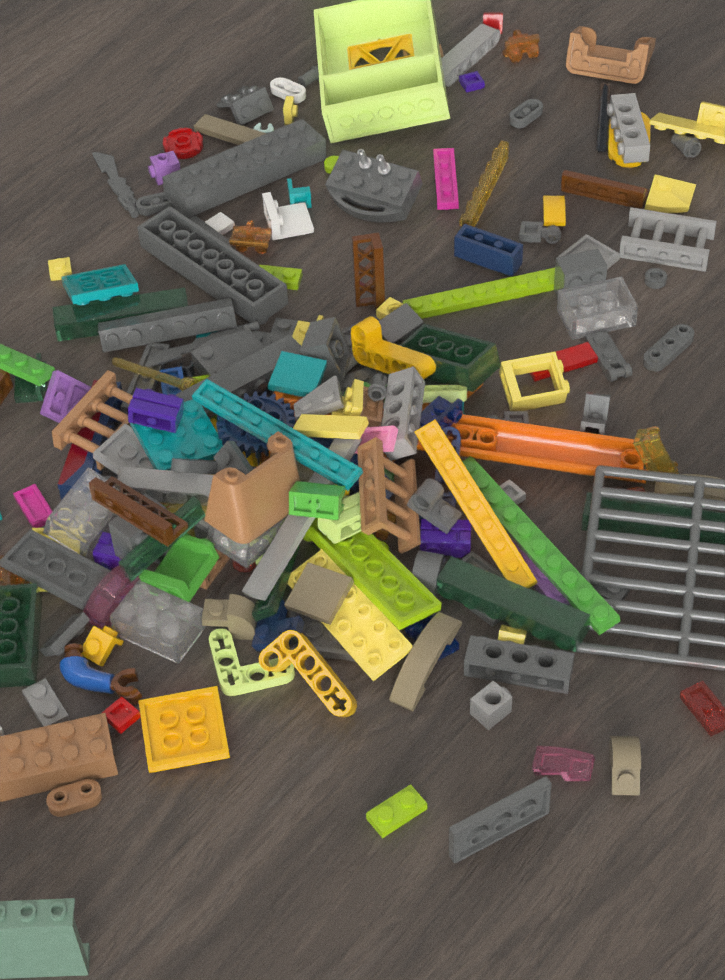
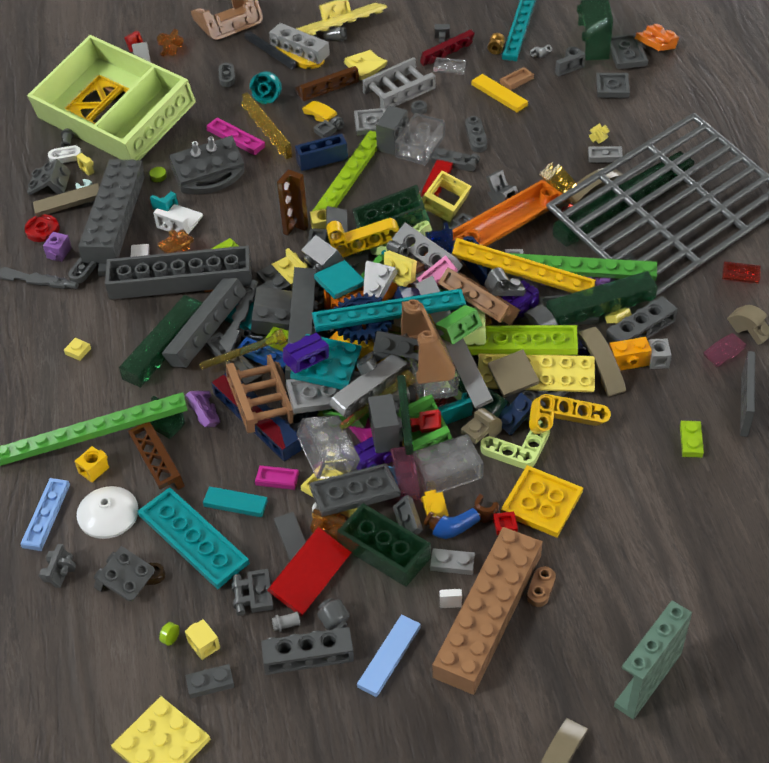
camera: 50 degrees left, 0 degrees up
(100, 284) = (127, 333): teal plate -> none
(135, 513) = (383, 406): reddish brown fence -> none
(180, 565) = (428, 421): none -> red plate
(229, 579) = (457, 410): none -> teal hinge
(331, 426) = (410, 283): light yellow tile -> none
(459, 676) = (631, 353): none -> light orange brick
(537, 149) = (265, 87): none -> teal cylinder

